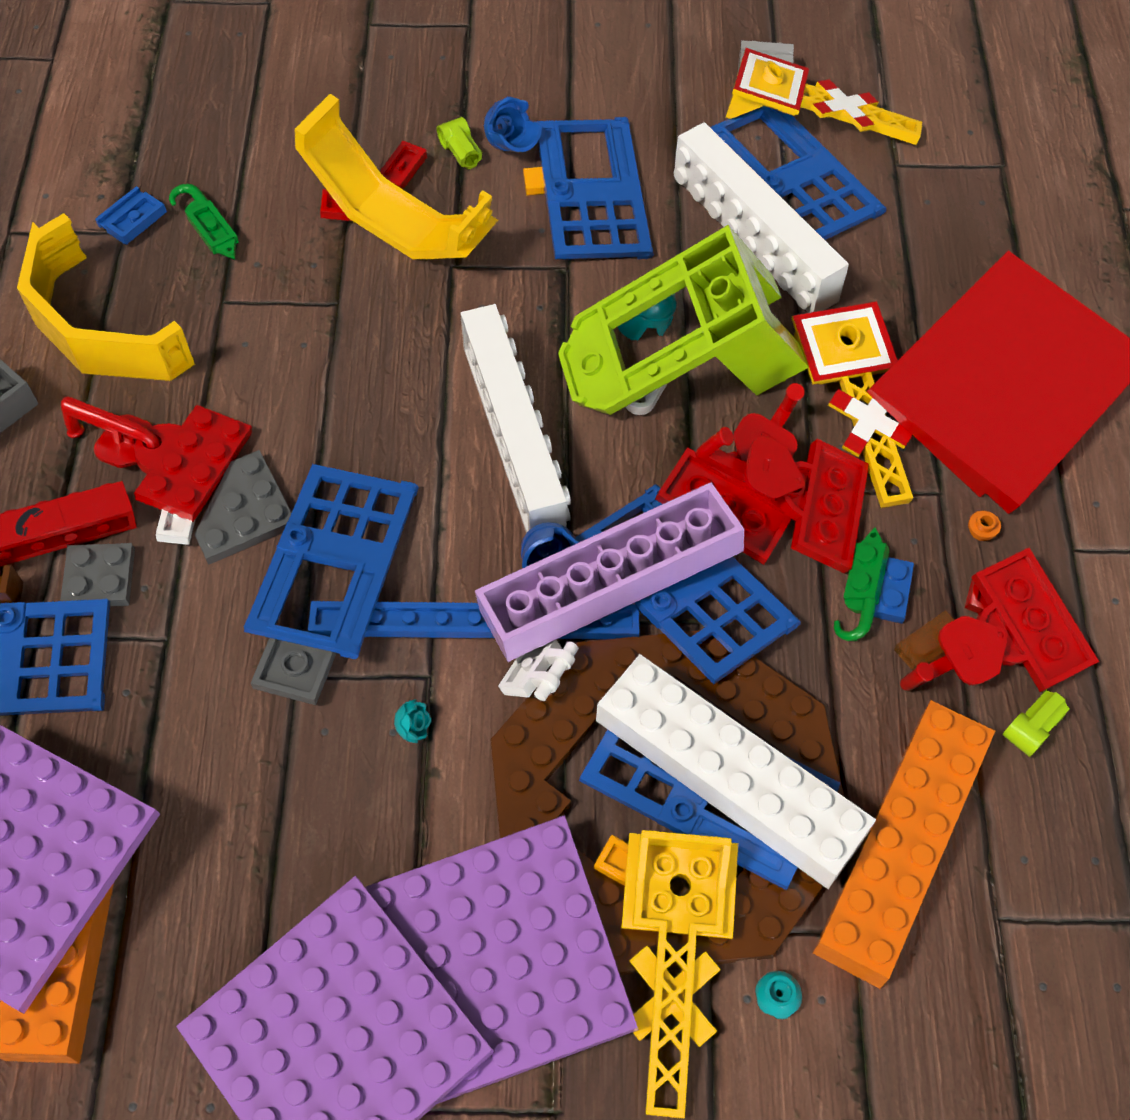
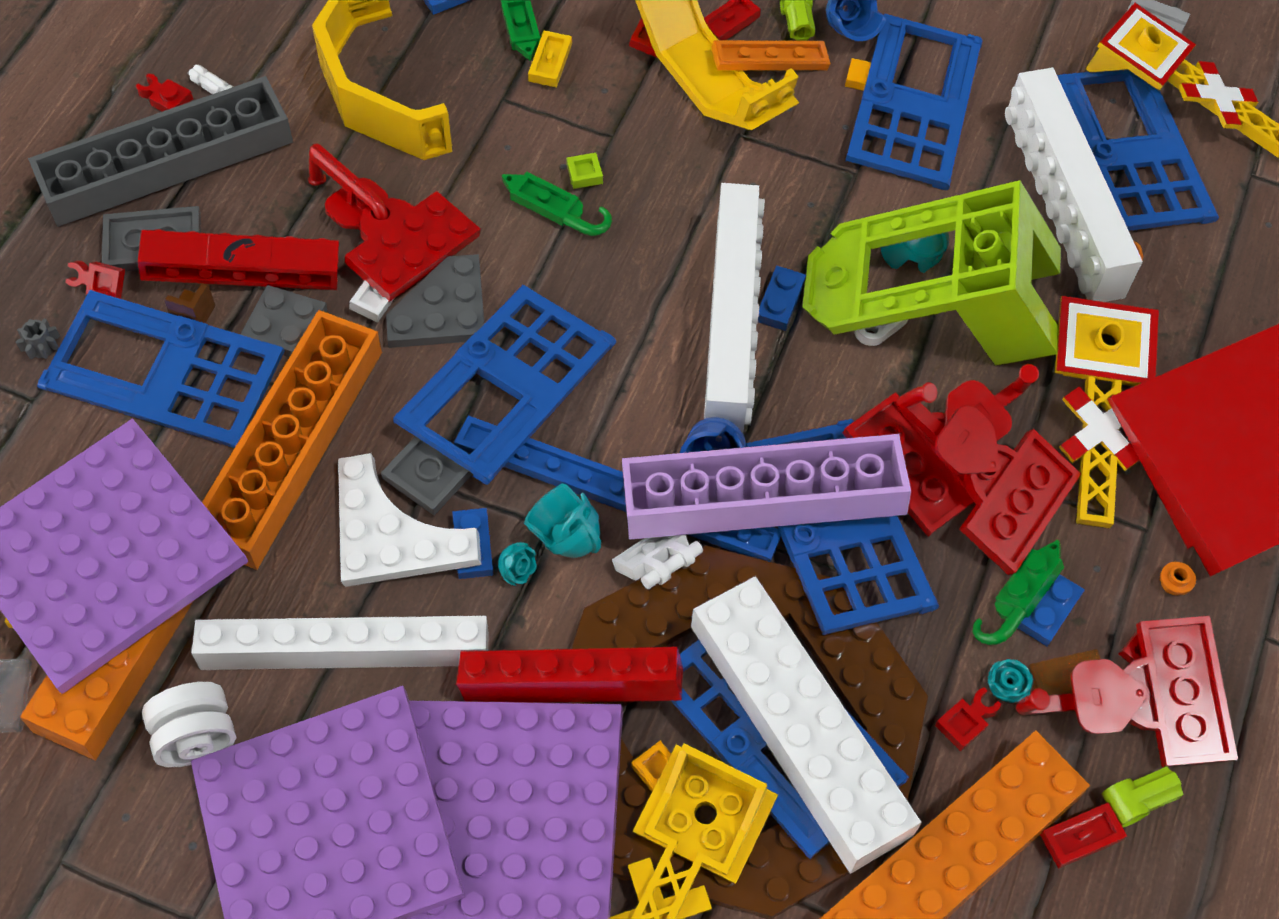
camera: 20 degrees right, 0 degrees up
(149, 676) = (291, 432): none -> orange brick
(161, 992) = (188, 723): none -> white wheel
(252, 251) = (550, 59): none -> yellow plate
(274, 858) = (336, 642): none -> white brick
(281, 746) = (383, 541): none -> white plate
(309, 380) = (553, 203): none -> green plate
(326, 342) = (584, 170): none -> lime plate
(362, 717) = (476, 519): none -> blue plate
(443, 667) = (565, 523): none -> teal helmet
(451, 187) = (770, 55): none -> orange tile
(506, 807) = (571, 675): none -> red brick
(550, 397) = (781, 297): none -> blue plate
(865, 714) = (965, 721): none -> red plate
(893, 658) = (1014, 671): none -> teal plate
(1003, 776) = (1083, 835): none -> red plate

